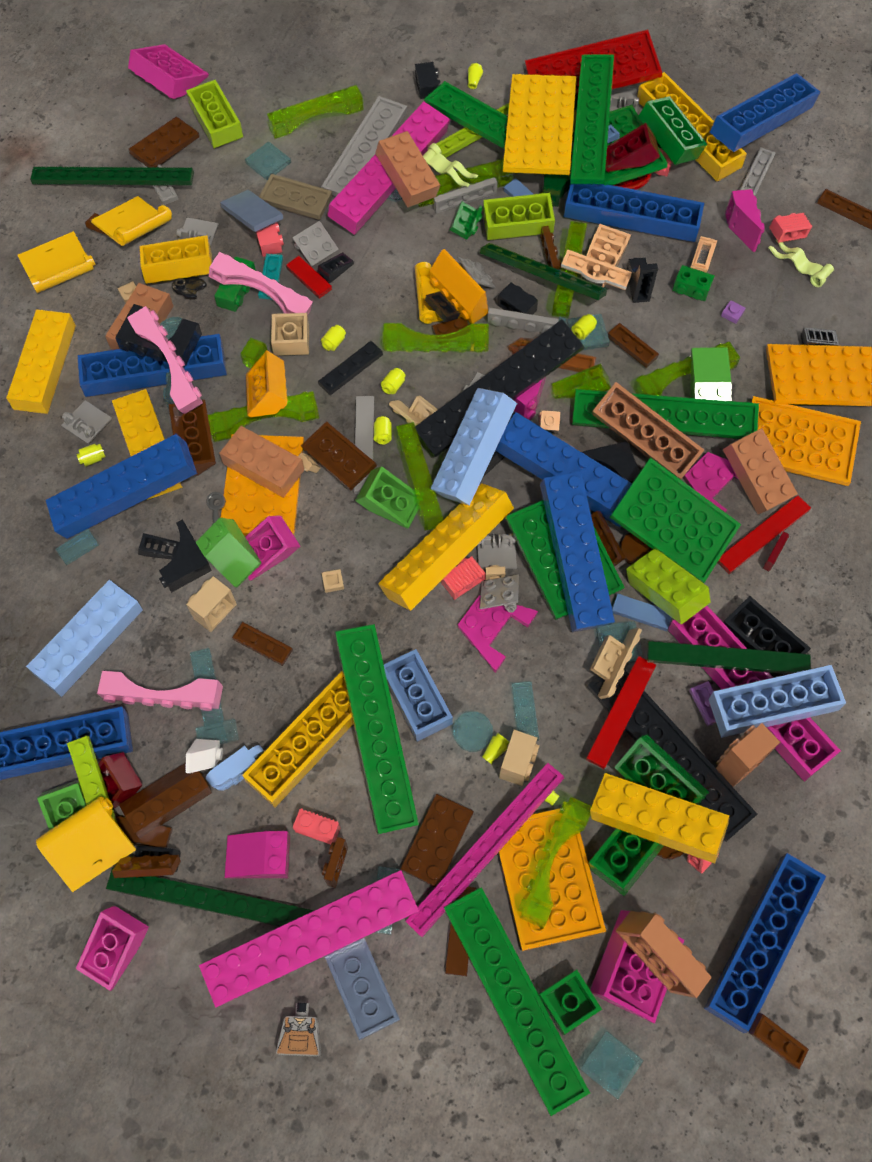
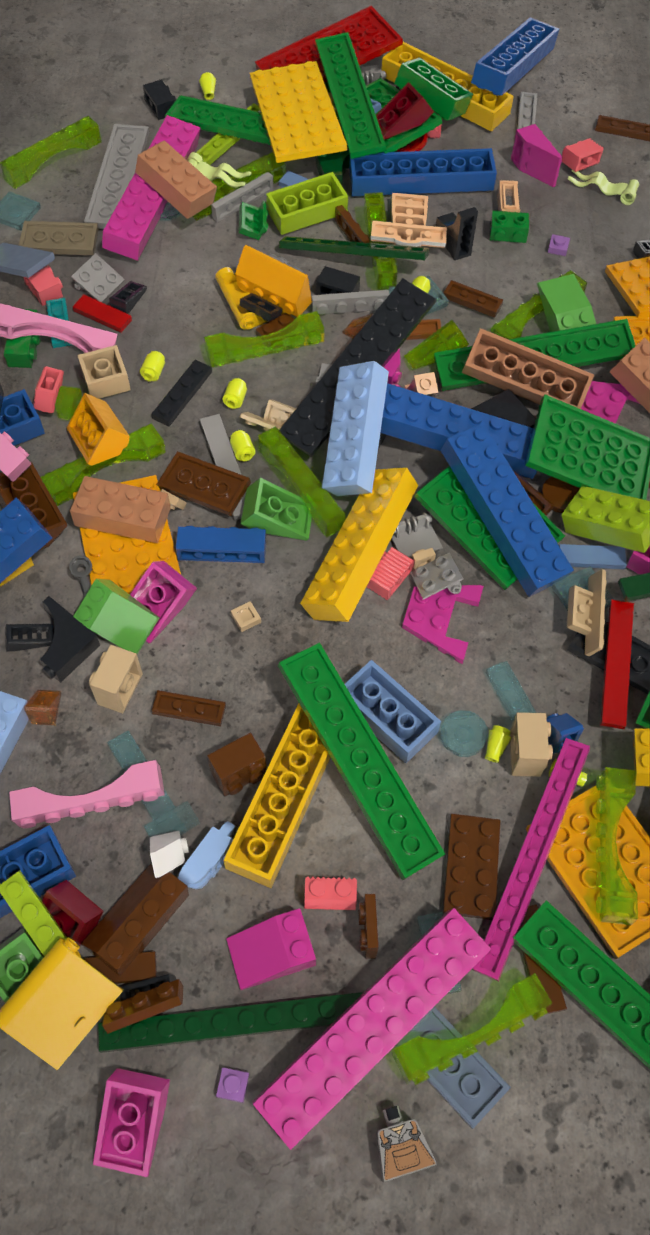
camera: 20 degrees left, 5 degrees down
(151, 609) = (43, 707): none -> clear orange slope
(194, 946) = (232, 1085): none -> medium lavender plate
(239, 337) = (48, 389): none -> coral brick
(280, 702) = (237, 764): none -> reddish brown brick
(334, 513) = (221, 544): none -> blue brick
(337, 973) = (424, 1055): none -> clear neon green arch
(551, 752) = (563, 727): none -> blue slope

